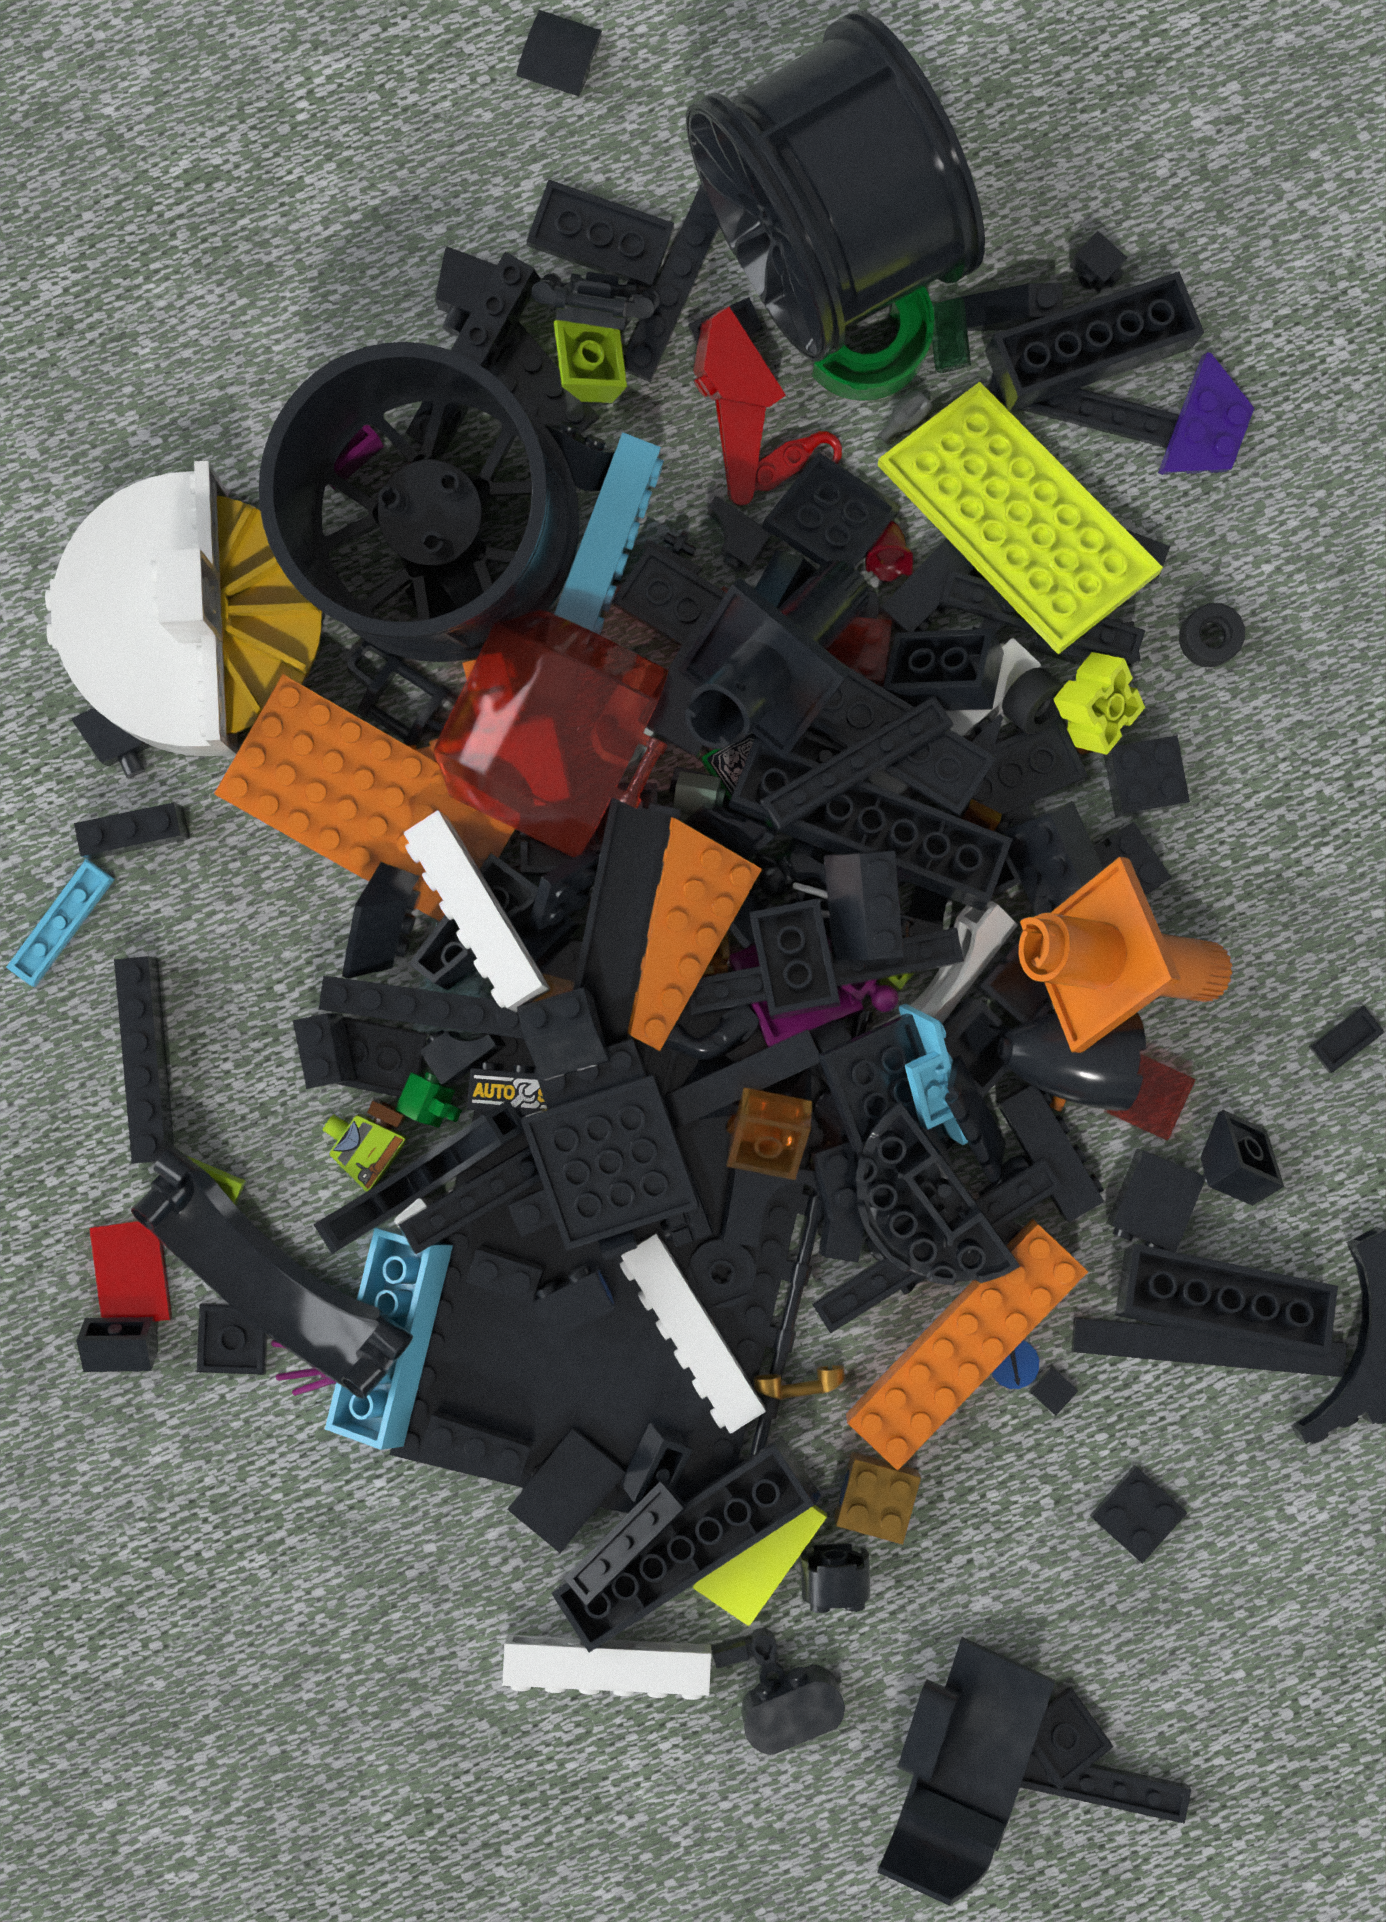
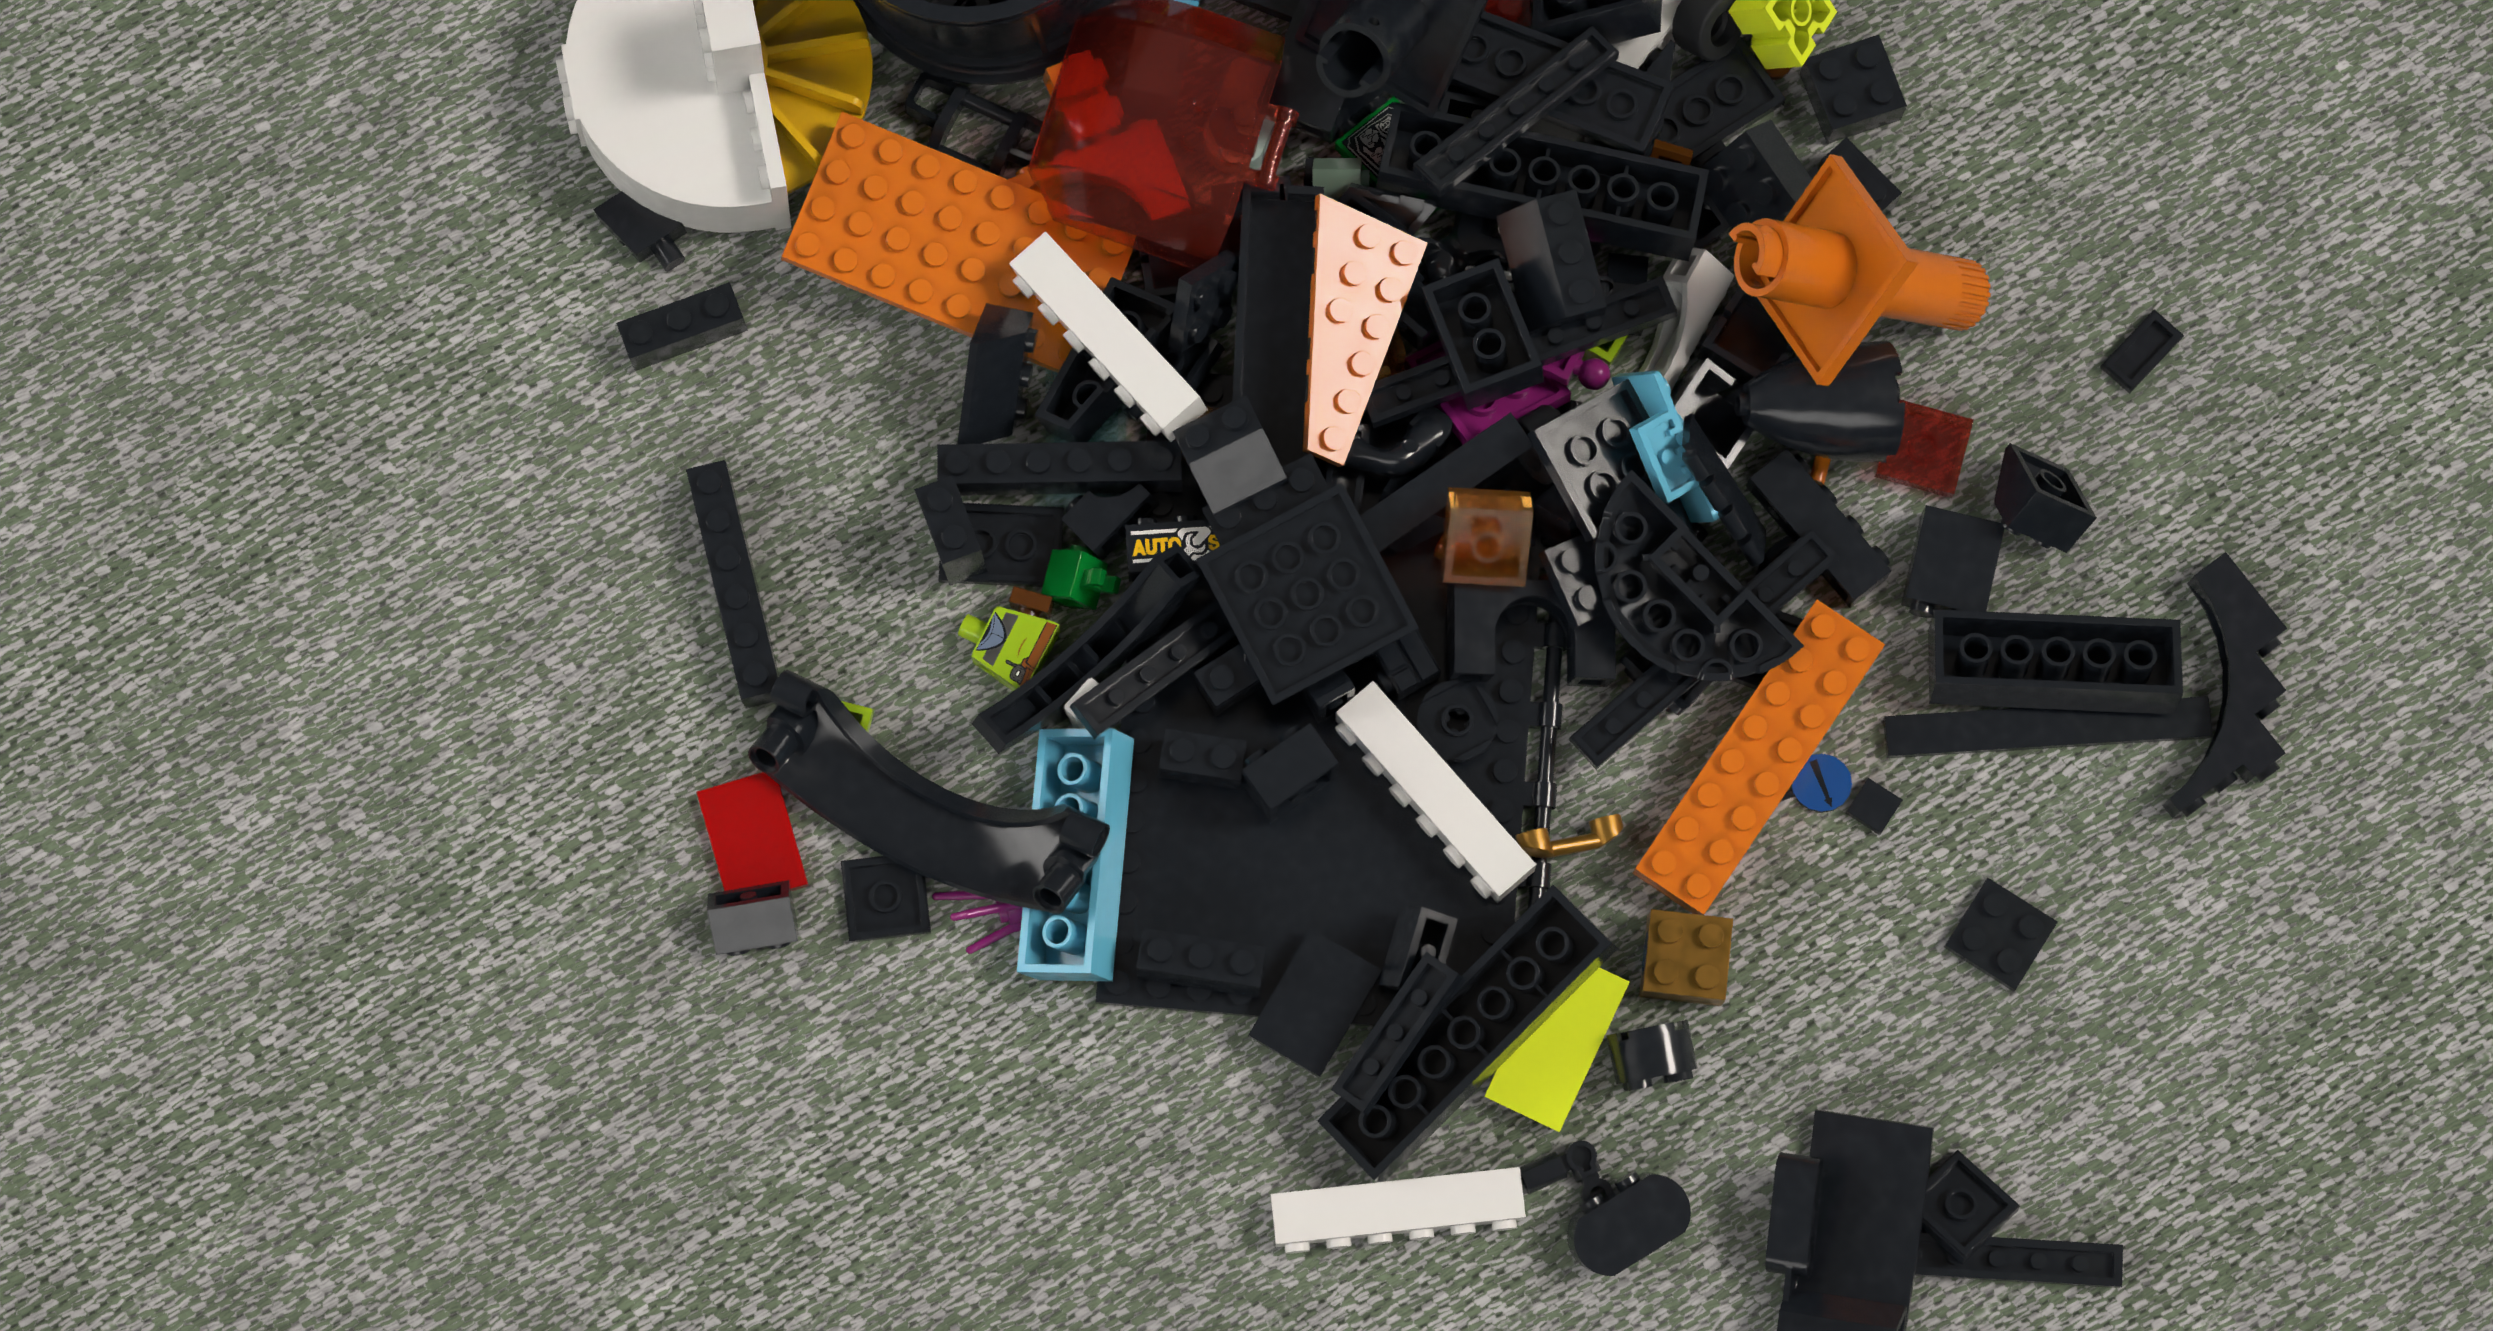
camera: 10 degrees left, 10 degrees down
(60, 923) = (609, 447): medium azure tile -> none

